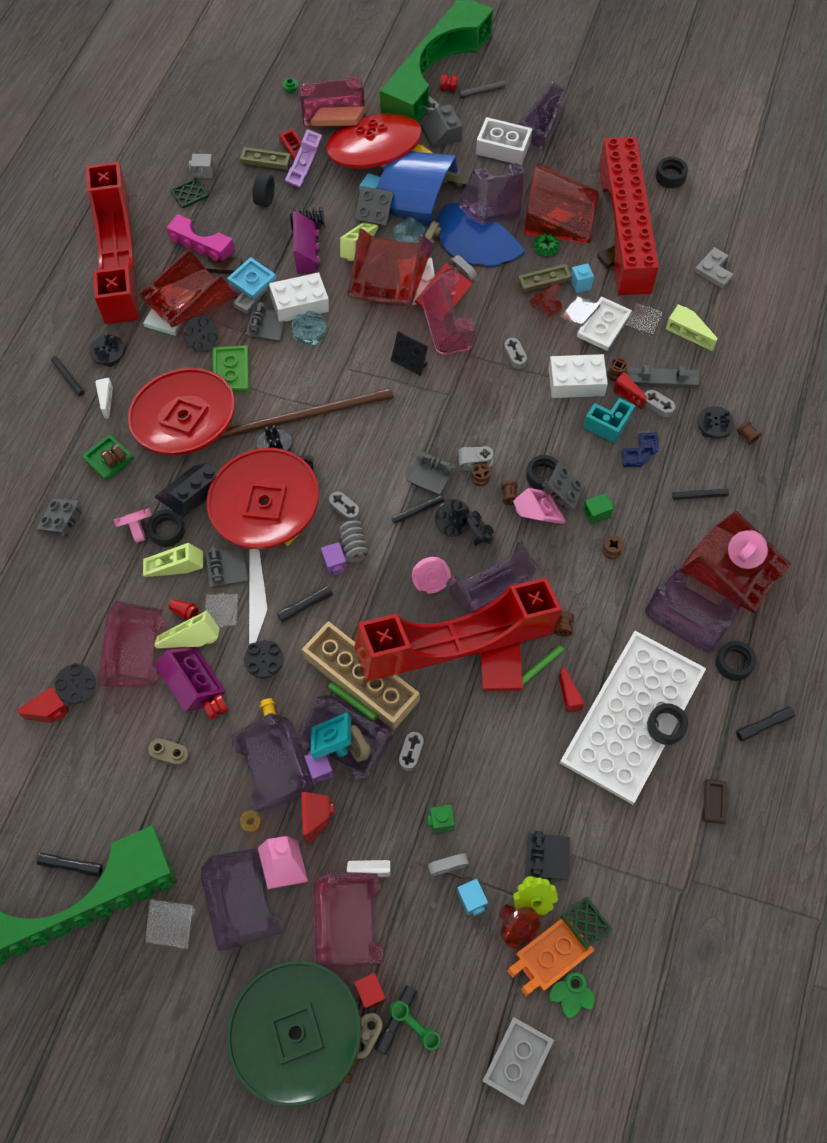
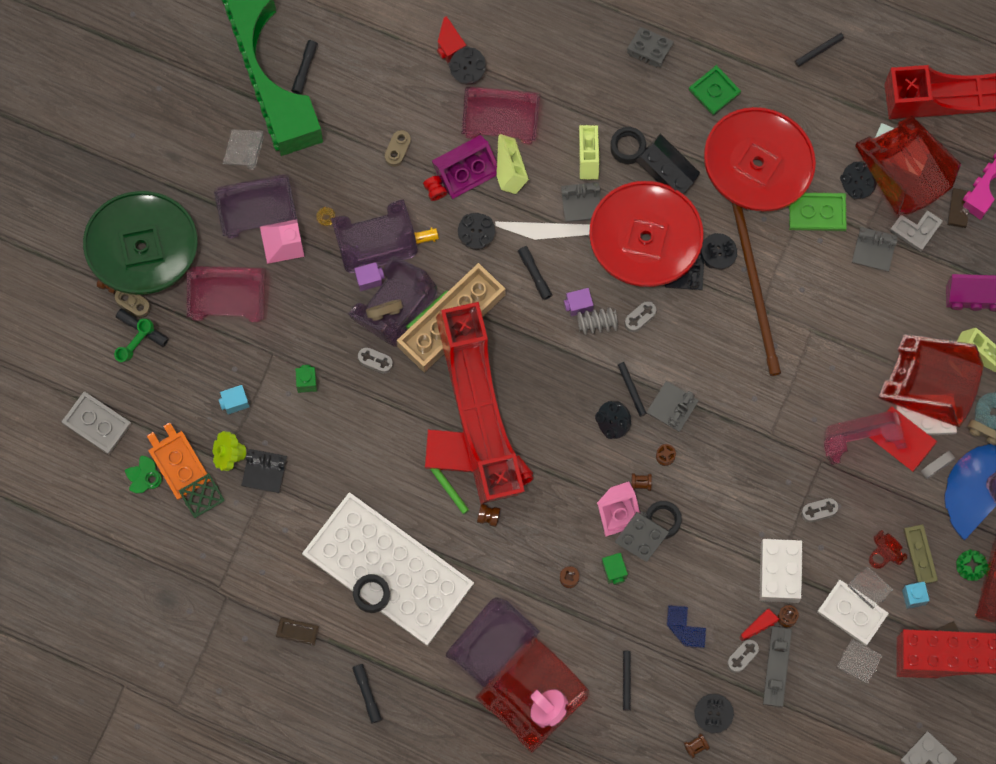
camera: 95 degrees right, 10 degrees up
(104, 391) = (787, 85): white slope -> none
(110, 343) = (856, 92): black plate -> none
(110, 459) = (709, 94): reddish brown wheel -> none
(134, 522) = (634, 114): bright pink tile -> none
(183, 609) = (537, 162): red cone -> none
(223, 609) = (536, 197): clear piece -> none
(251, 278) = (929, 233): medium azure plate -> none
(299, 296) = (903, 283): white brick -> none
(309, 336) = (862, 303): clear light blue plate -> none
(315, 815) = (320, 268): red slope -> none
(331, 737) = (390, 285): teal tile -> none
(370, 991) = (165, 305): red panel -> none
(381, 867) = (271, 314): white slope -> none
(409, 353) = (821, 390): black hinge -> none
(431, 575) = (551, 390): bright pink tile -> none
(448, 864) = (265, 382): light grey beam -> none
(473, 455) = (685, 449): light grey piece -> none
(483, 531) = (599, 444): black plate -> none
(493, 581) = (532, 443): clear purple windscreen -> none
(519, 925) = (203, 434): clear red tile -> none
(571, 696) = (413, 511): red slope -> none
(609, 423) = (714, 596): teal brick -> none
(689, 326) = (845, 704): yellowish green slope -> none
(742, 648) = (429, 663): black tyre -> none

